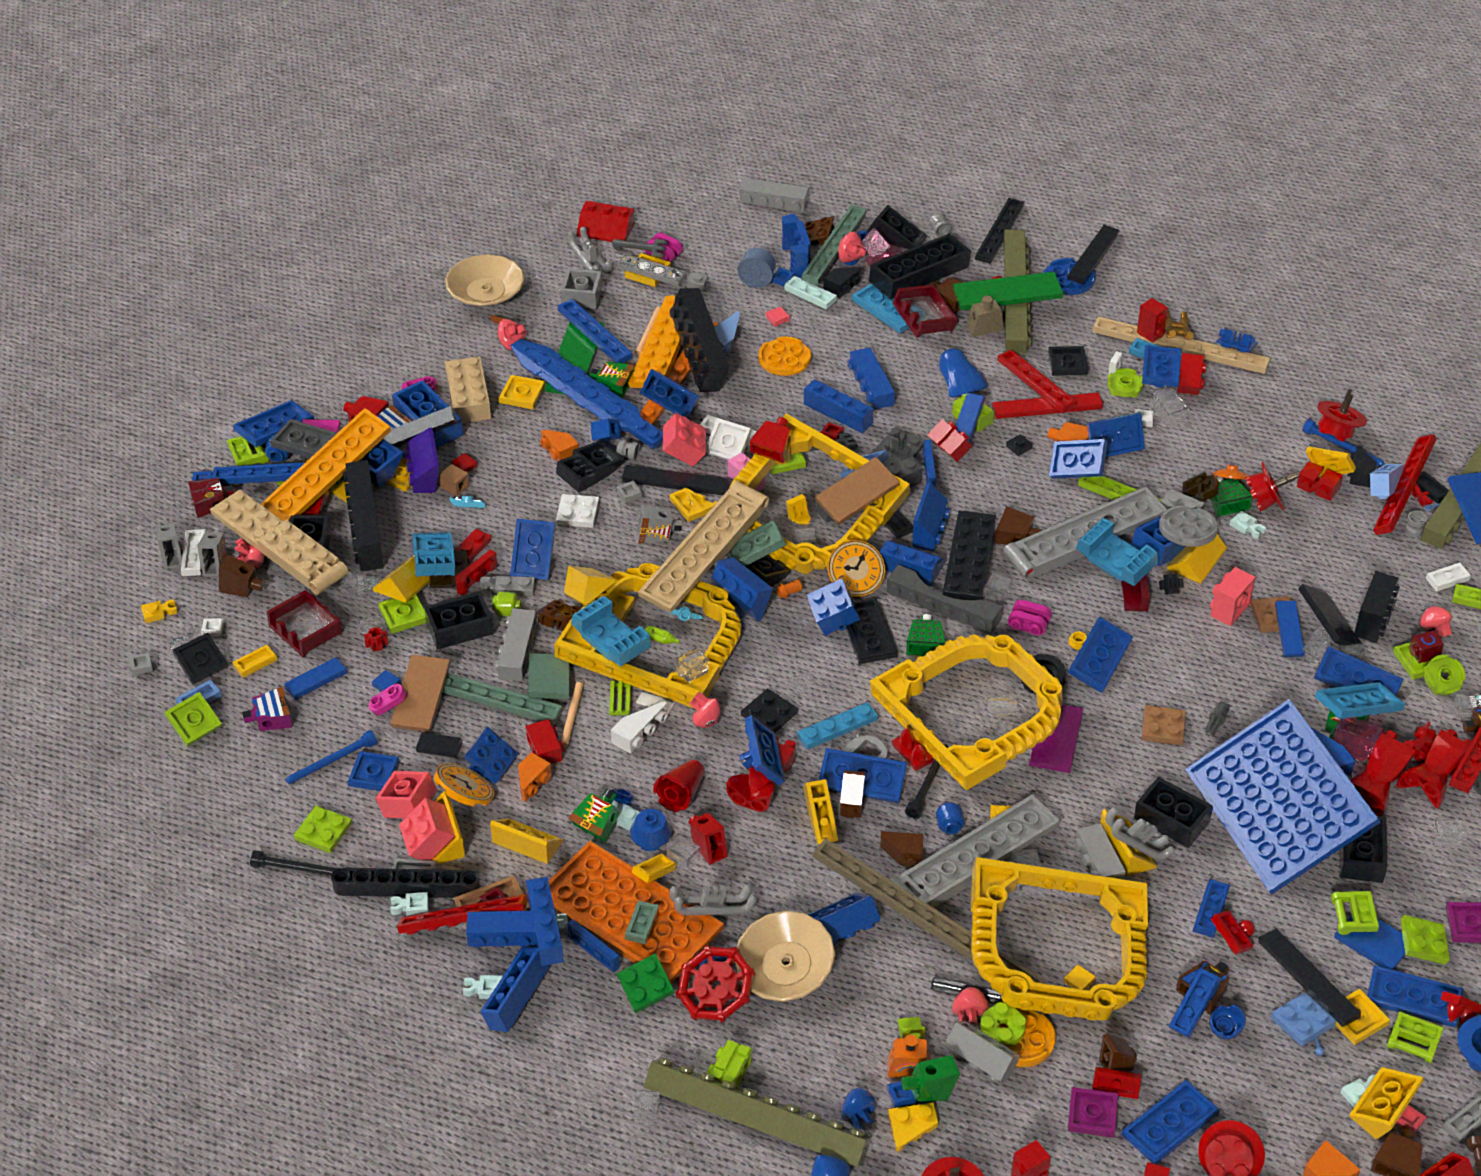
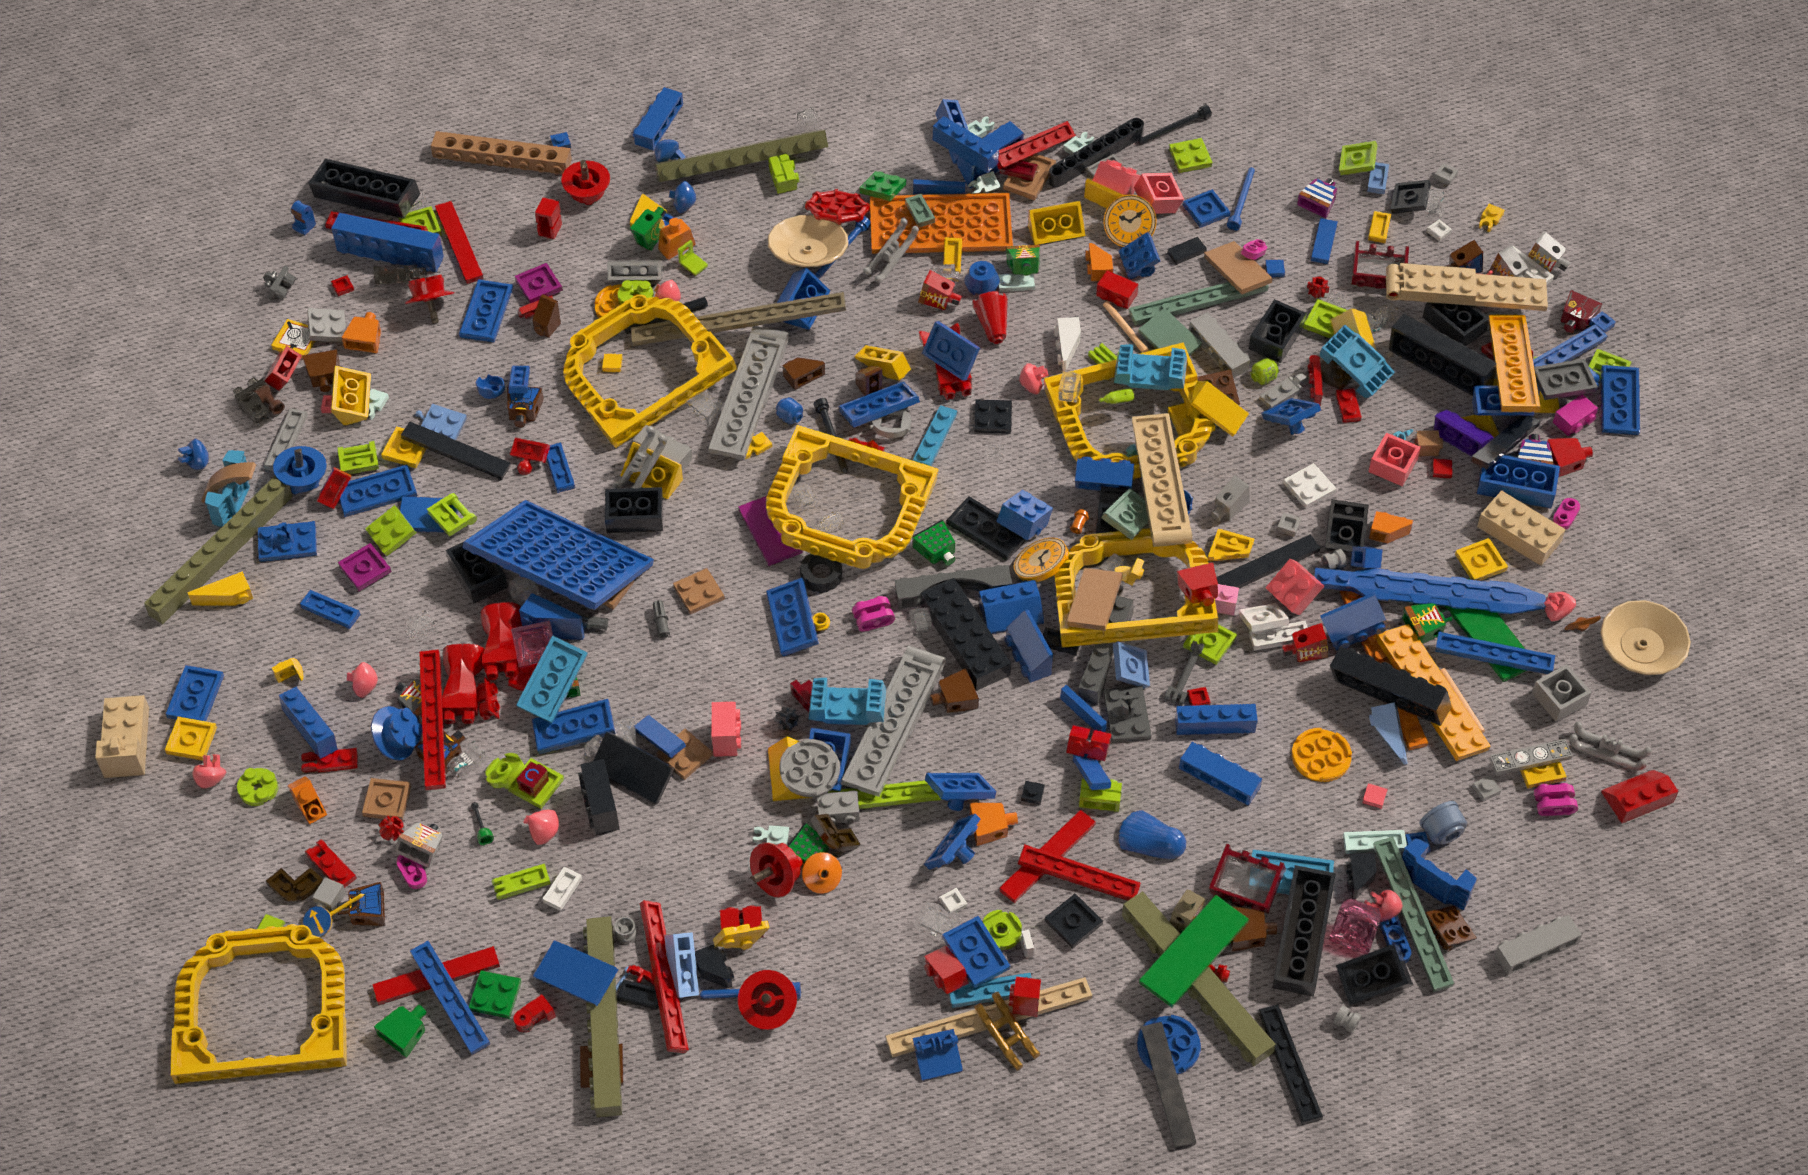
camera: 140 degrees right, 10 degrees up
(496, 479) = (1394, 459): none -> coral brick
(623, 796) = (1025, 289): clear blue tile -> none
(655, 248) = (1553, 781): dark grey hinge -> none
(717, 404) = (1308, 644): none -> red torso

